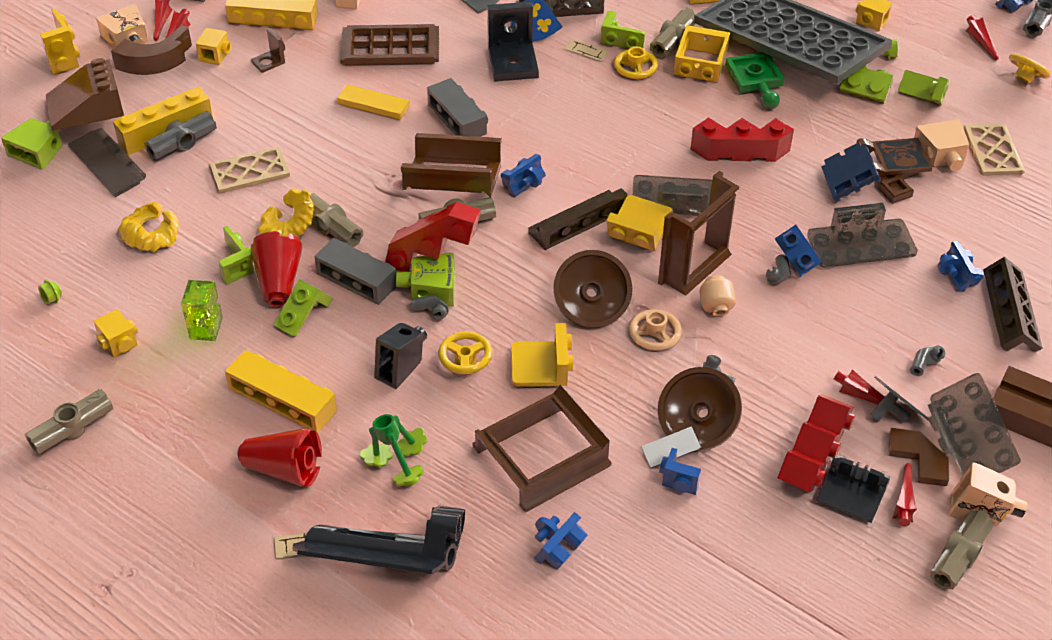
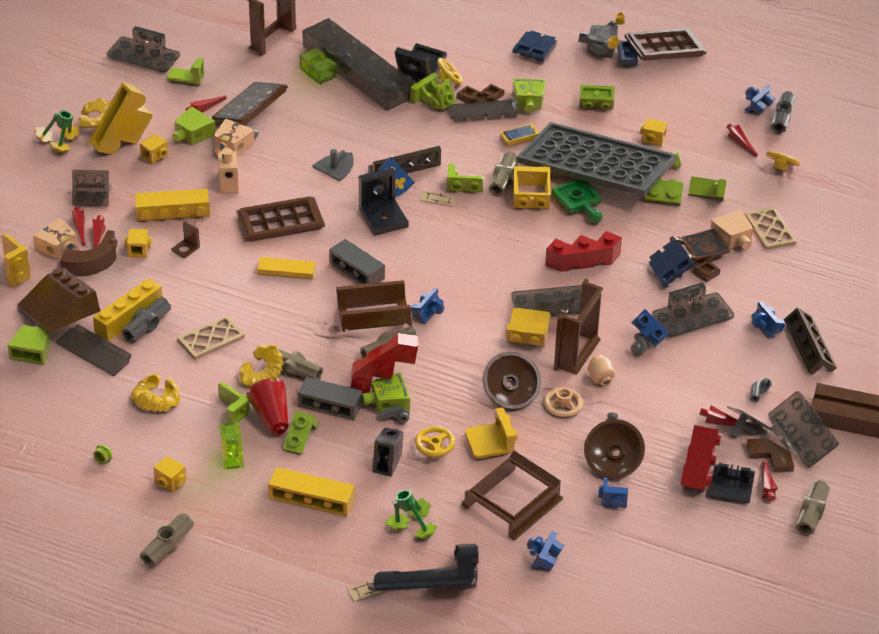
camera: 15 degrees left, 5 degrees down
(284, 455) = (333, 533): red cone -> none
(577, 218) = (480, 331): dark brown fence -> none
(635, 58) = (480, 200): yellow piece -> none
(683, 440) = (592, 483): white sticker -> none
(987, 492) = (822, 467): light nougat torso -> none

